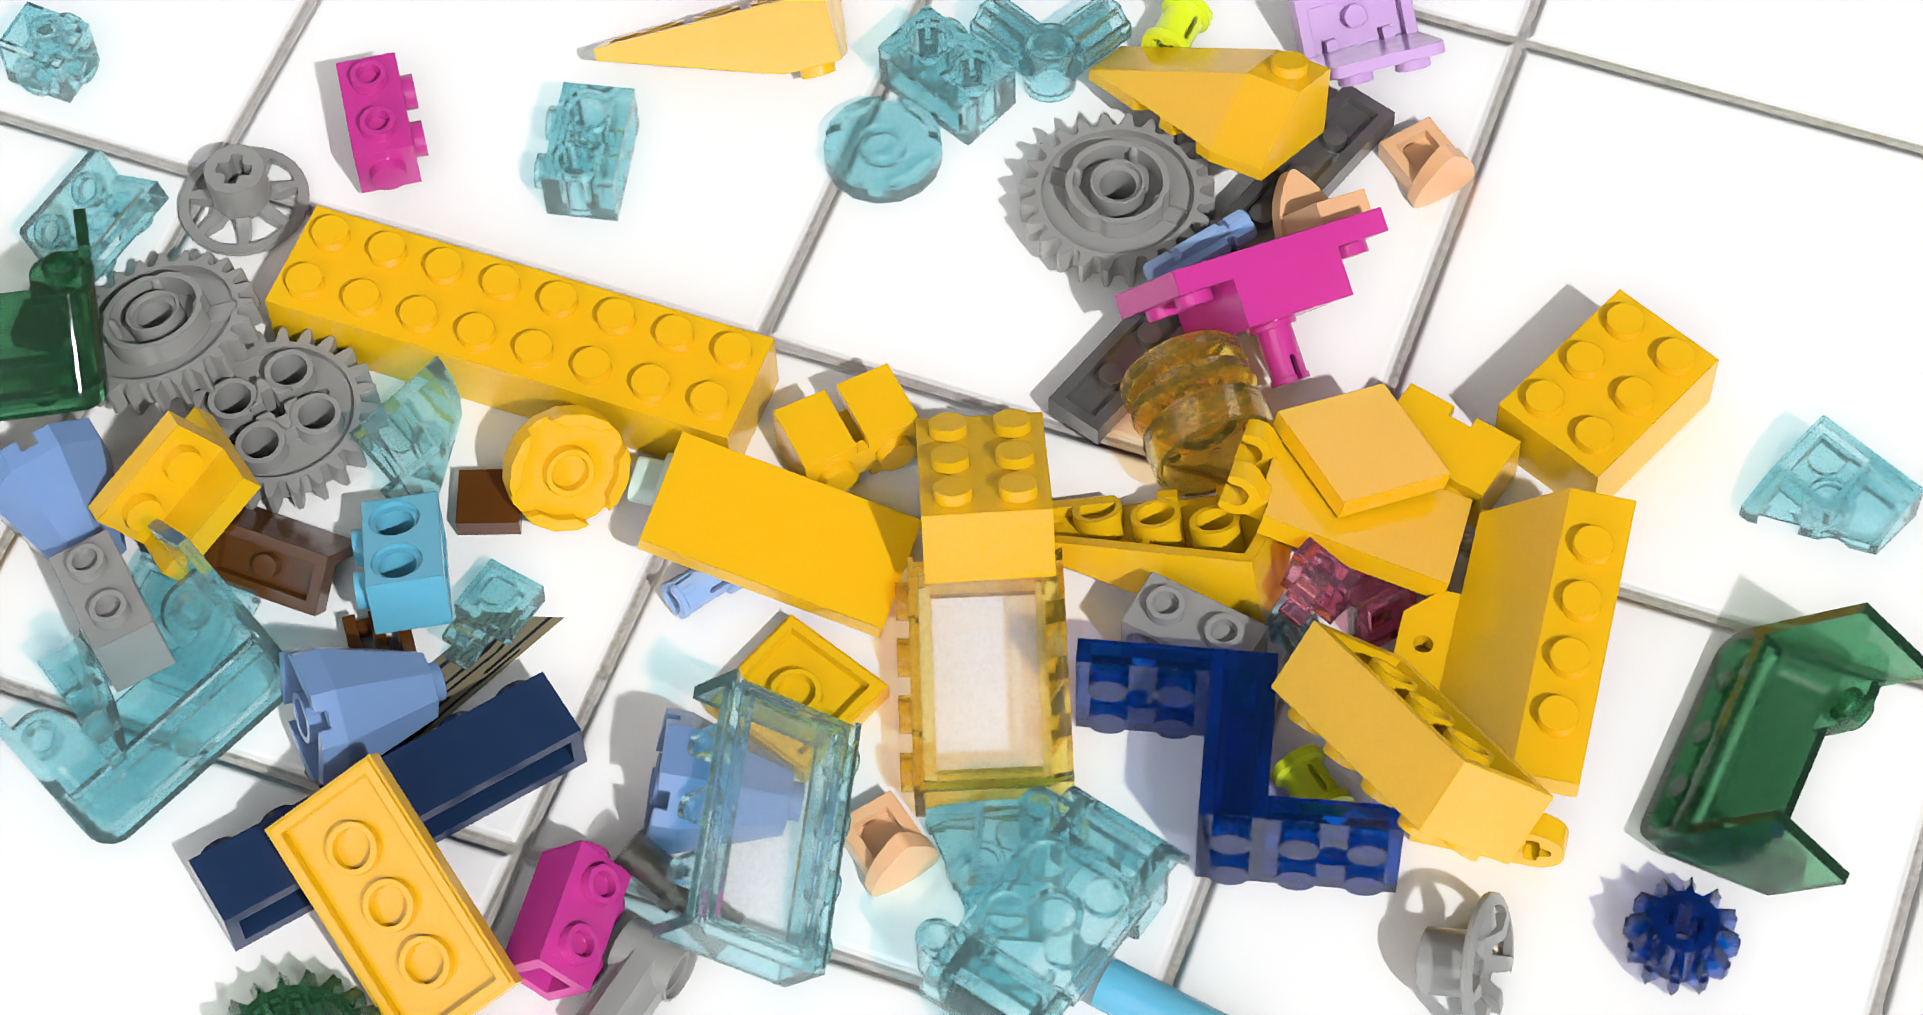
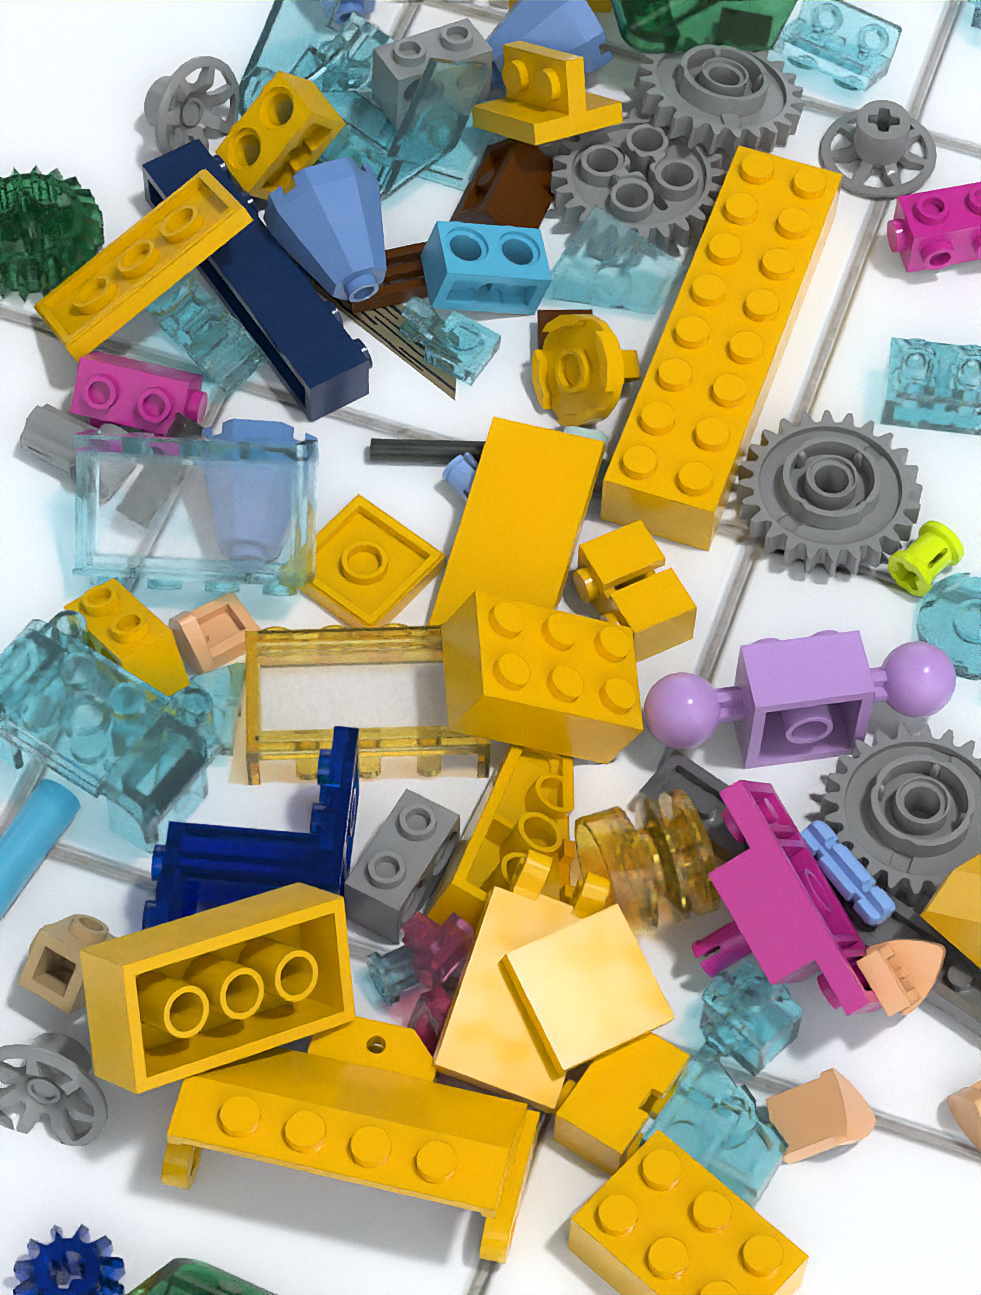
camera: 85 degrees right, 0 degrees up
(118, 892) = (186, 107): none -> light grey wheel
(208, 763) = (279, 135): none -> yellow brick
(494, 838) = (207, 333): none -> clear light blue brick
(642, 623) = (423, 450): none -> pearl dark grey bar
(767, 245) = (870, 499): none -> light grey gear
(808, 179) = (925, 558): none -> neon yellow bush
(935, 883) = (131, 636): none -> yellow brick
(997, 277) = (800, 697): none -> lavender brick
(1327, 944) = (54, 960): none -> tan brick
(1357, 340) = (749, 1017): none -> clear light blue brick
(1455, 299) = (820, 1115): none -> light nougat tile
(1475, 369) = (721, 1127): none -> clear light blue slope

